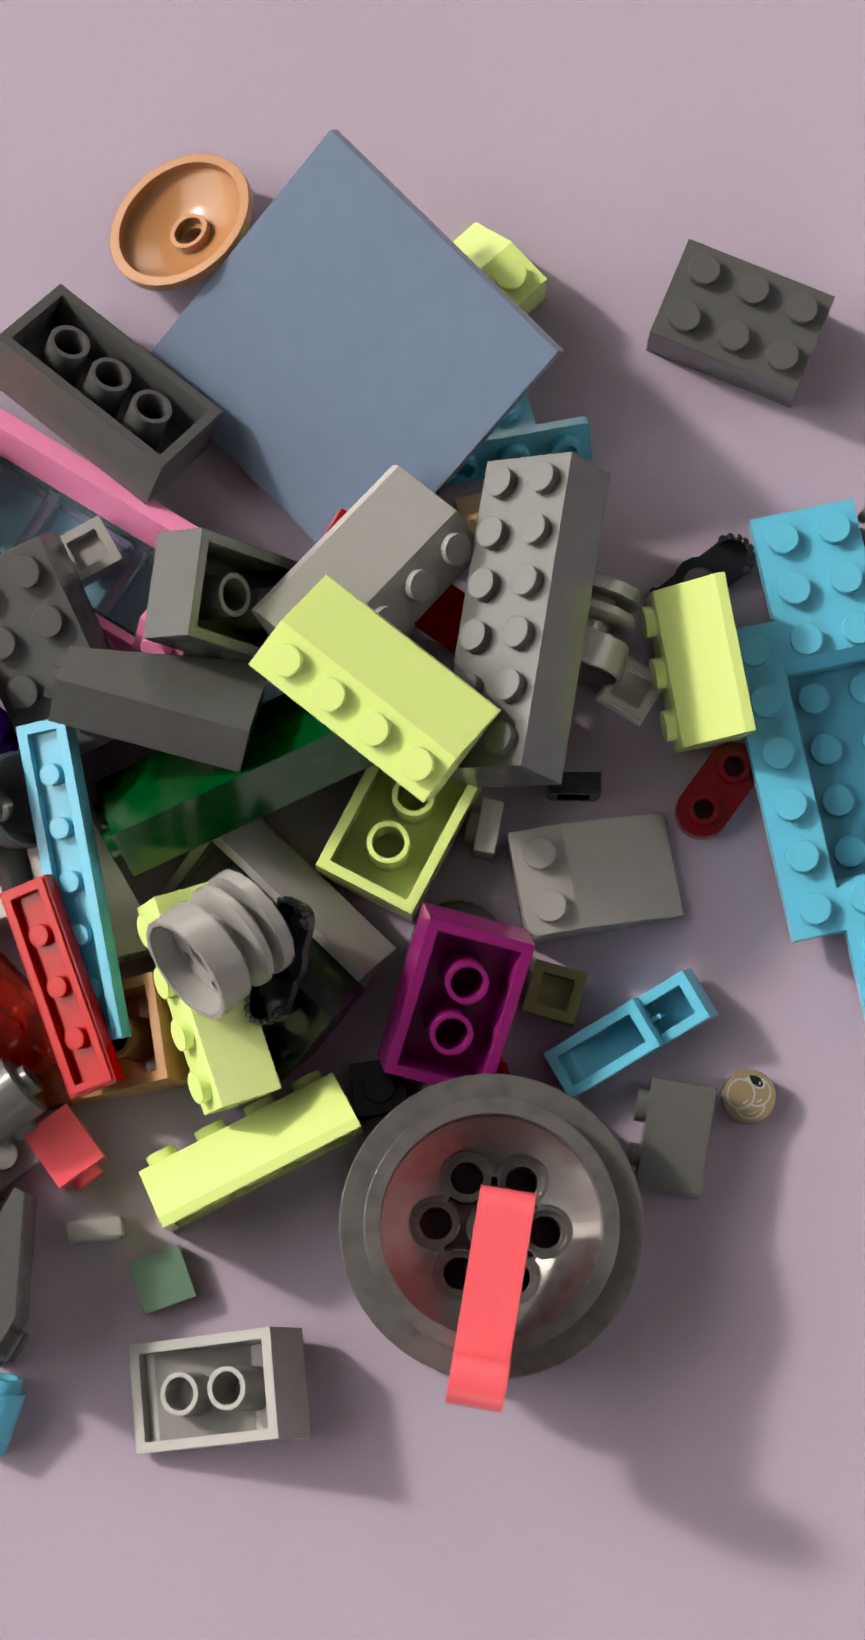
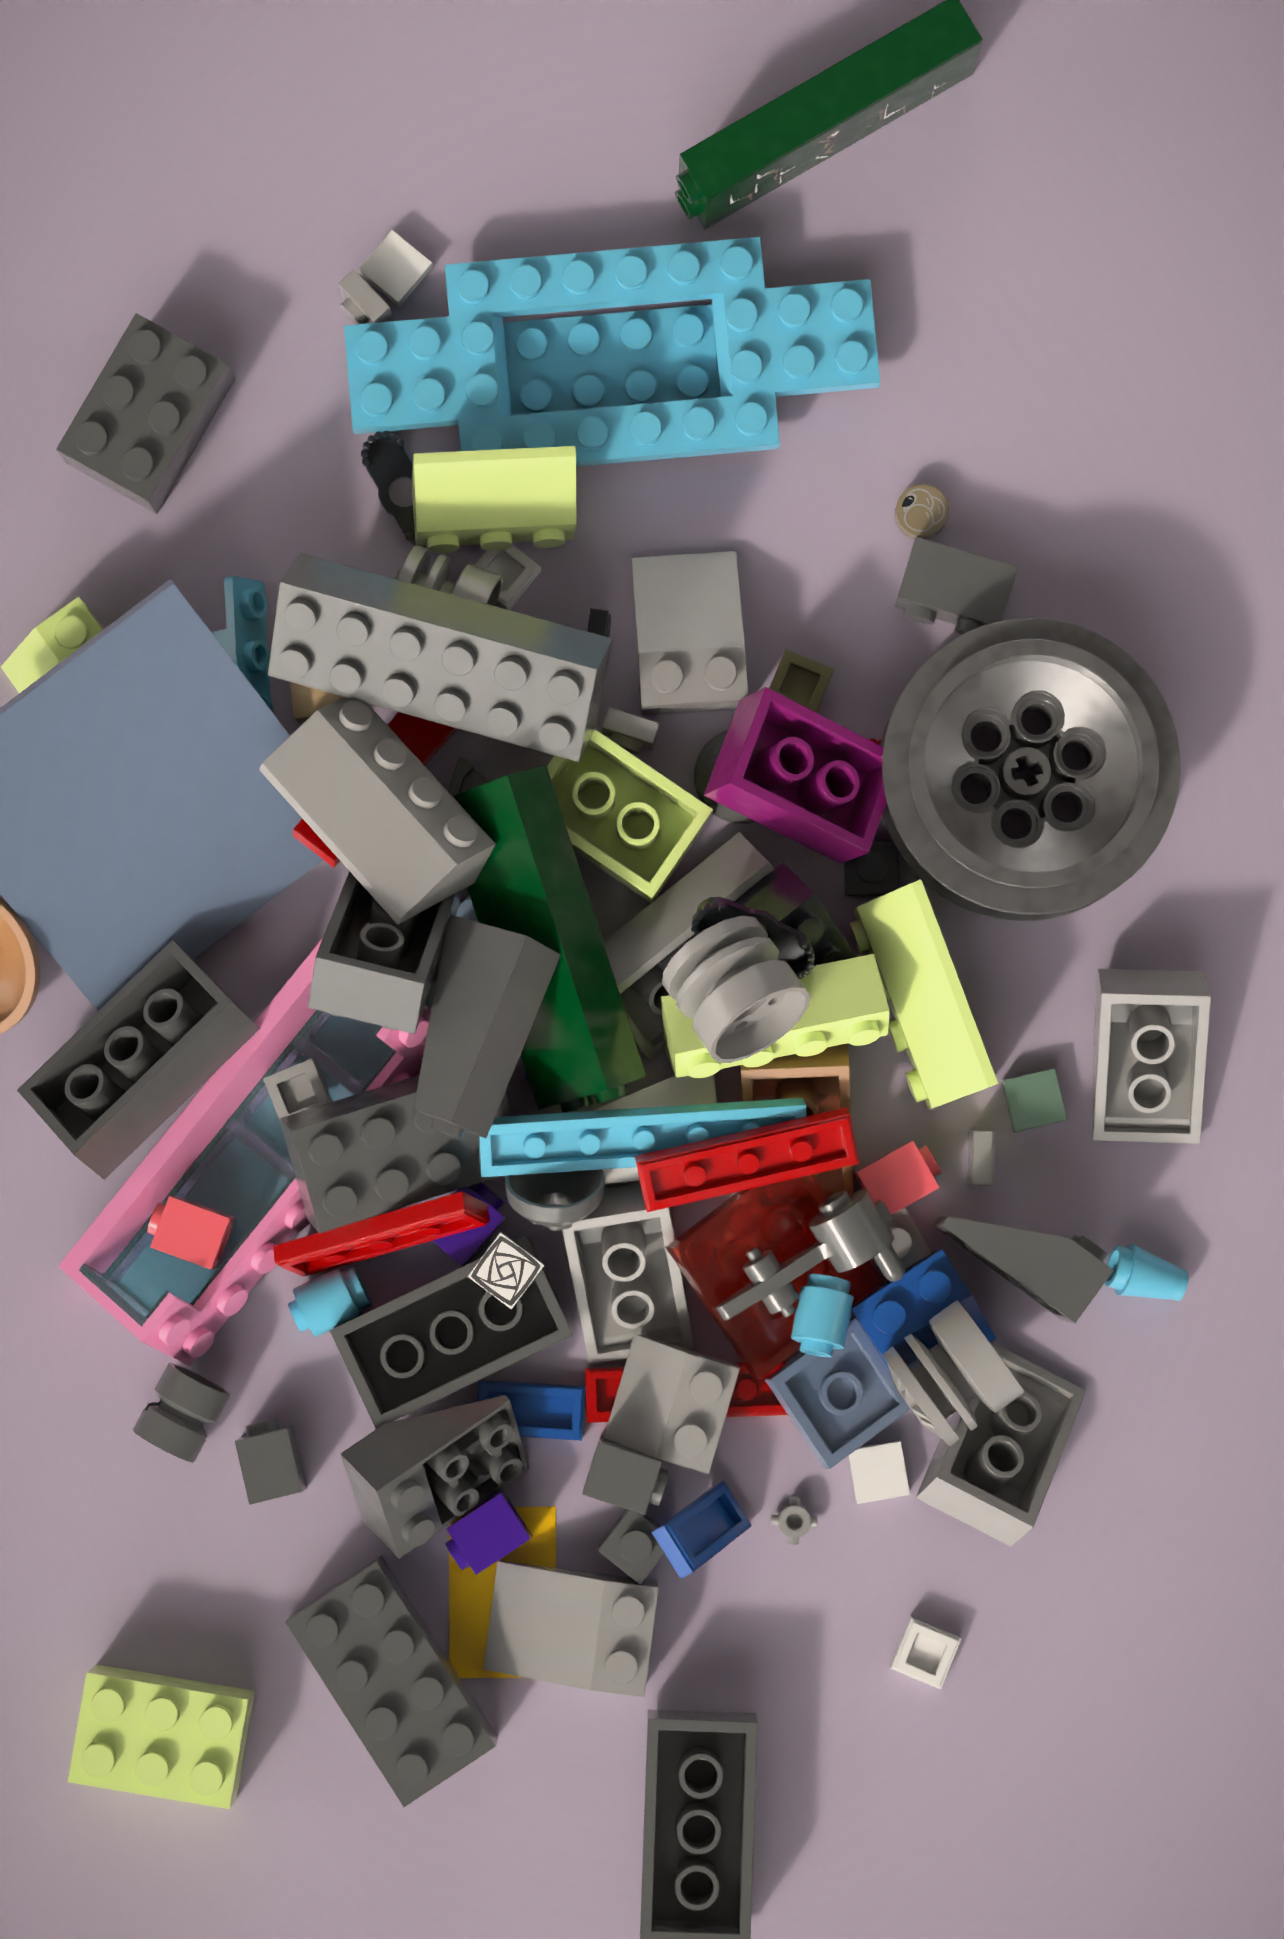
camera: 85 degrees left, 5 degrees up
(375, 688) = (501, 803): yellowish green slope -> none
(491, 1299) = (1112, 770): coral beam -> none
(630, 1033) = (848, 615): medium azure slope -> none
(717, 789) = (615, 502): dark red plate -> none

